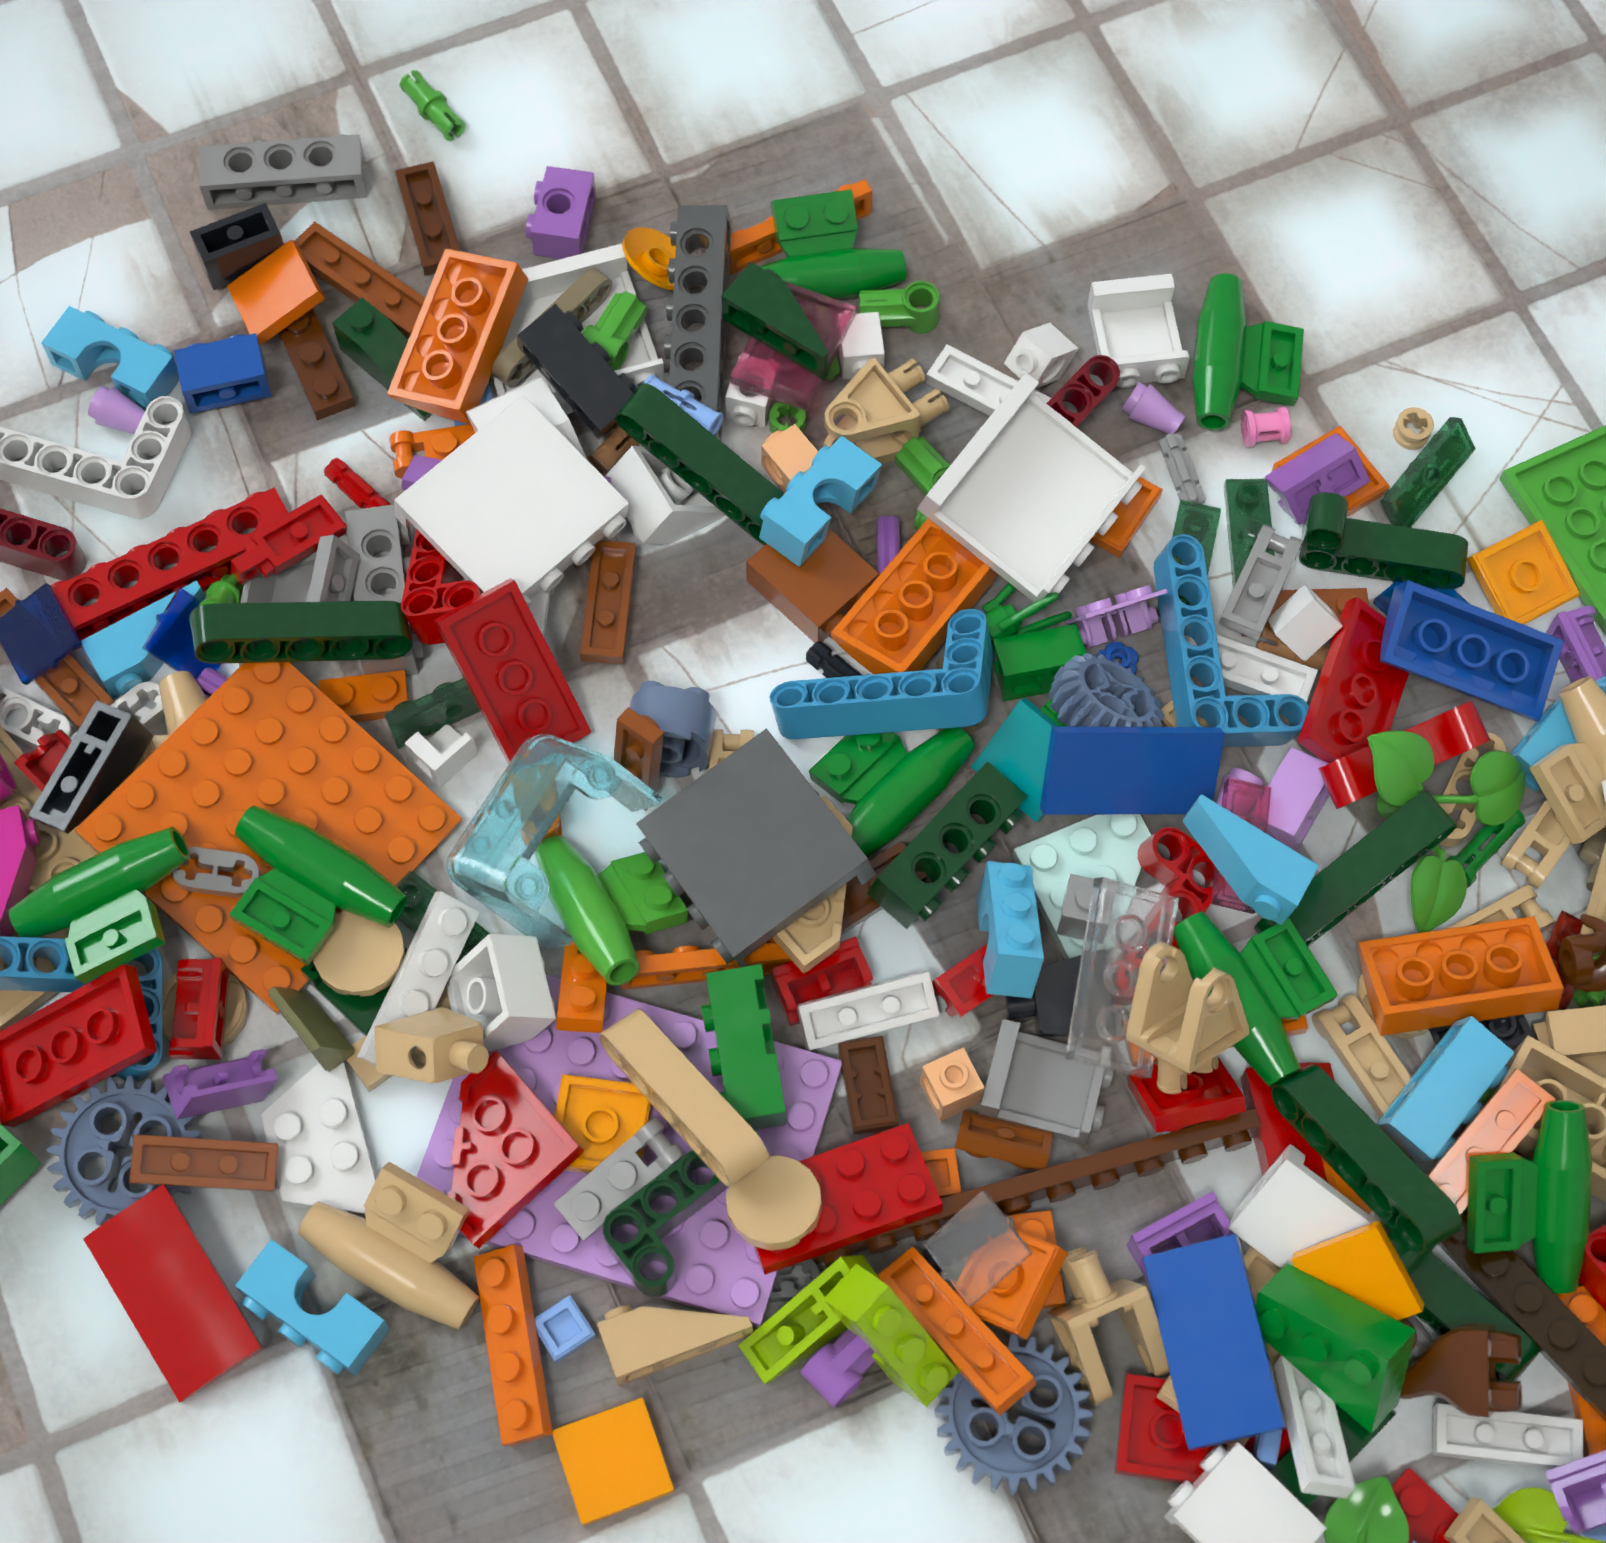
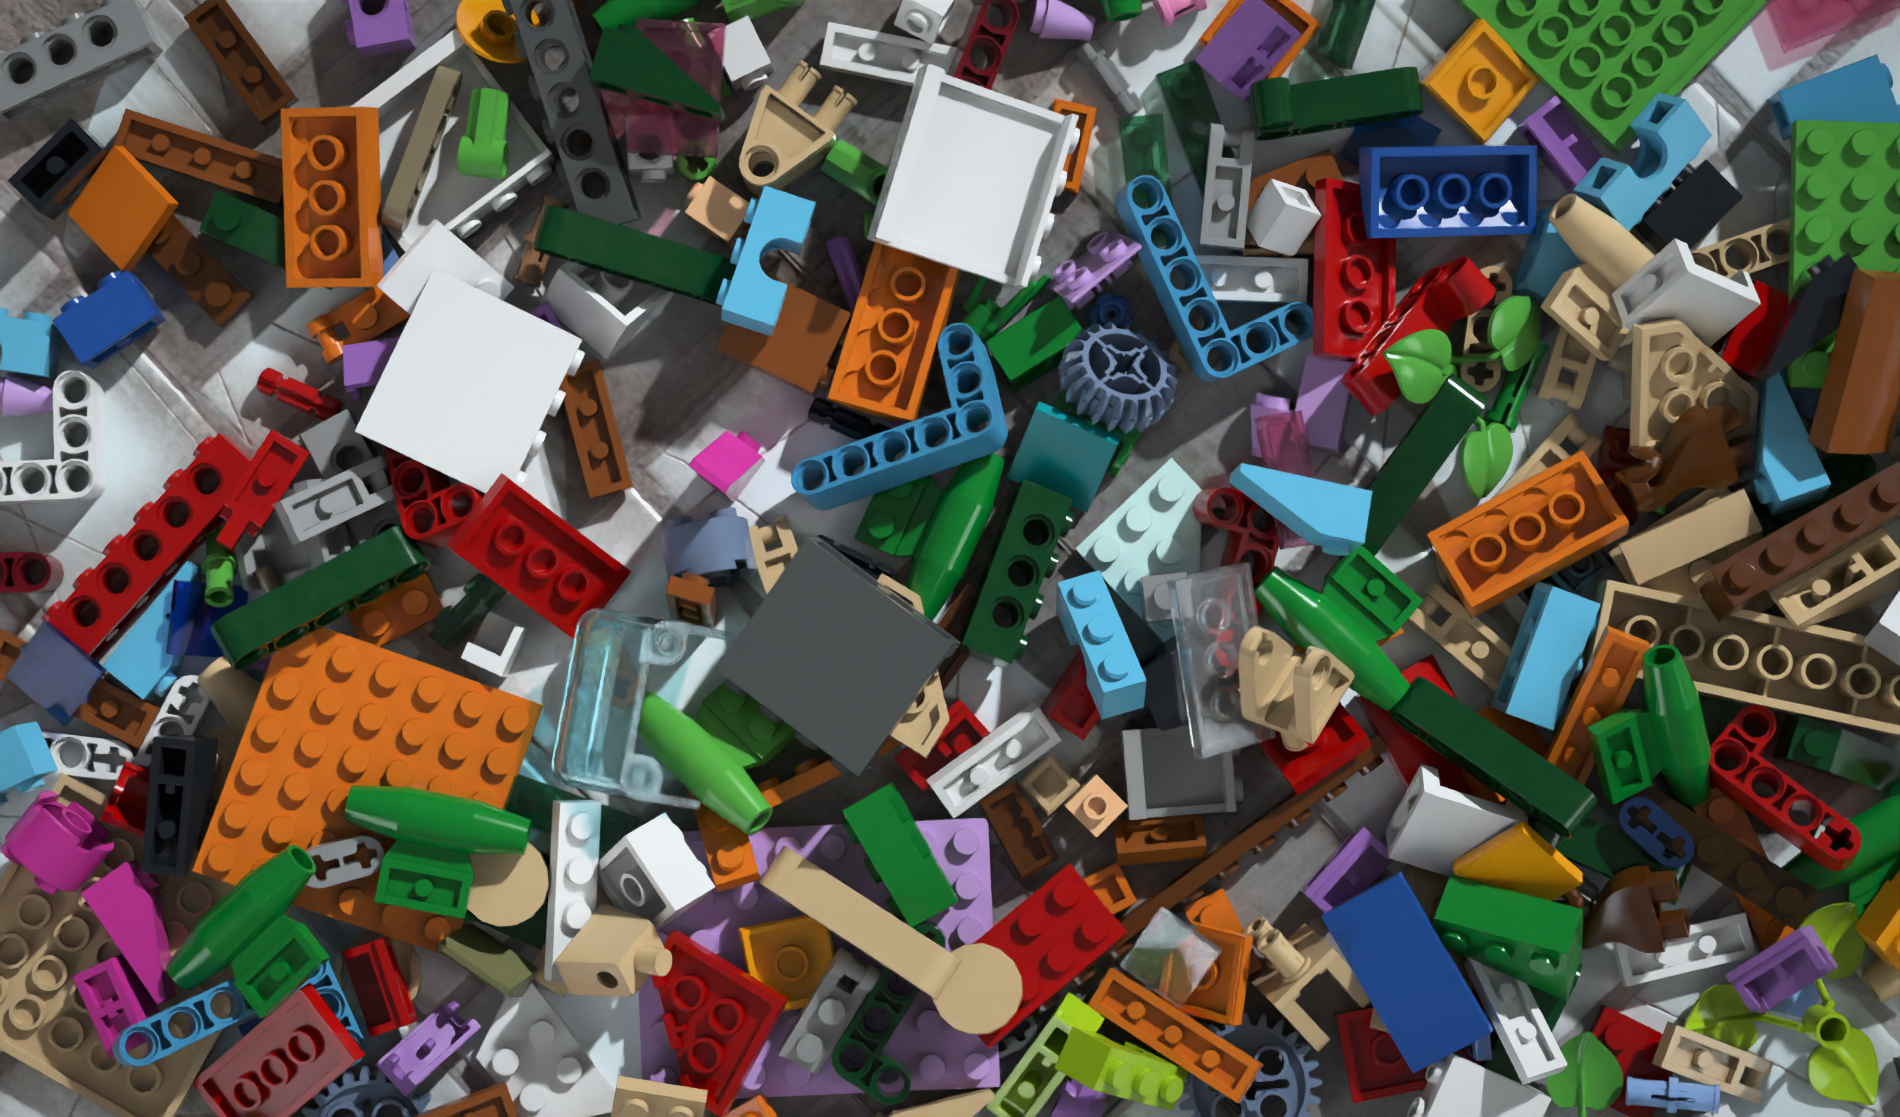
camera: 20 degrees left, 20 degrees up
(351, 558) = (334, 500): none -> light grey plate
(576, 368) = (472, 202): black brick -> none
(685, 399) = (620, 211): light blue pin -> none
(715, 660) = (729, 463): none -> dark pink slope
(909, 1053) = (1049, 784): none -> tan tile
(1129, 769) = (1164, 442): blue tile -> none
(1520, 1288) = (1649, 840): none -> dark blue beam

